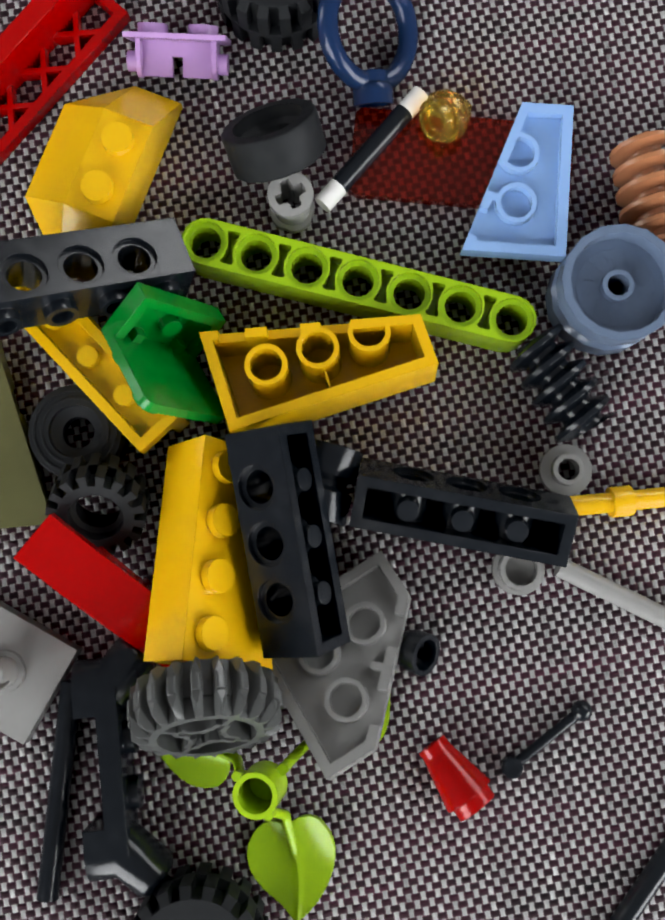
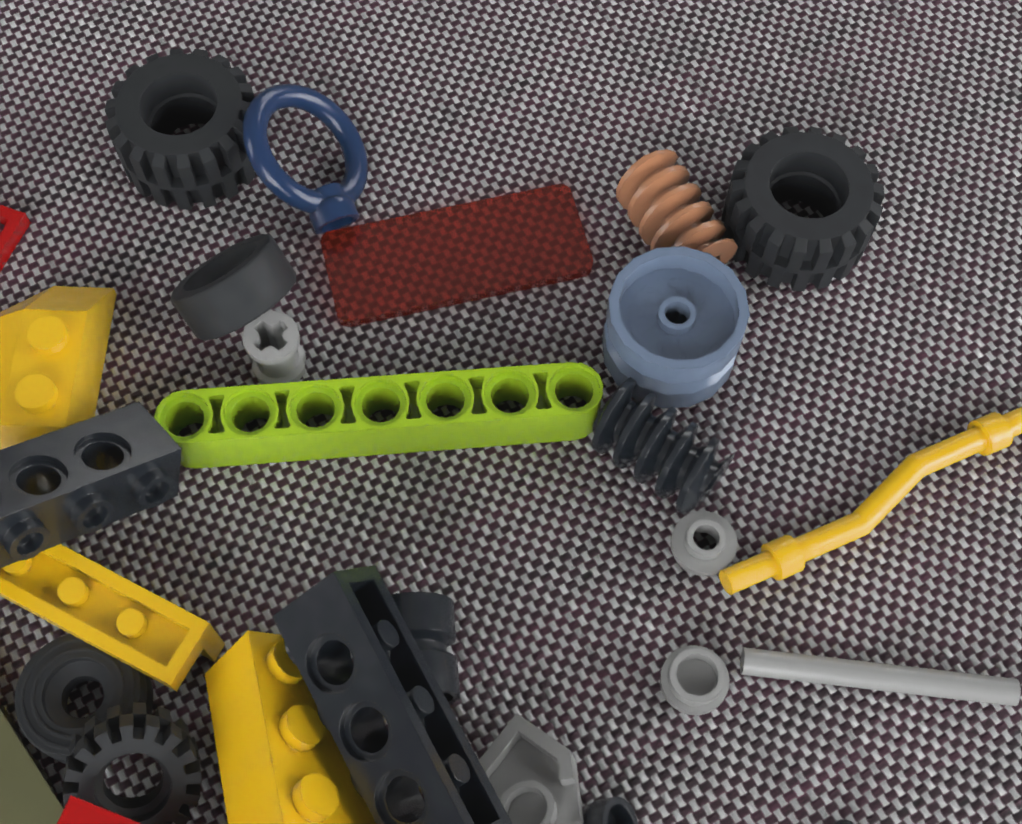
camera: 20 degrees left, 20 degrees down
(157, 346) = (161, 547): green bracket -> none
(158, 48) = (71, 236): lavender hinge -> none
(316, 368) = (366, 511): yellow wedge -> none
(371, 149) = (349, 270): black bar -> none
(444, 116) = (420, 210): clear yellow plate -> none
(464, 512) = (599, 627): black brick -> none
(529, 190) = (541, 258): light blue wing -> none

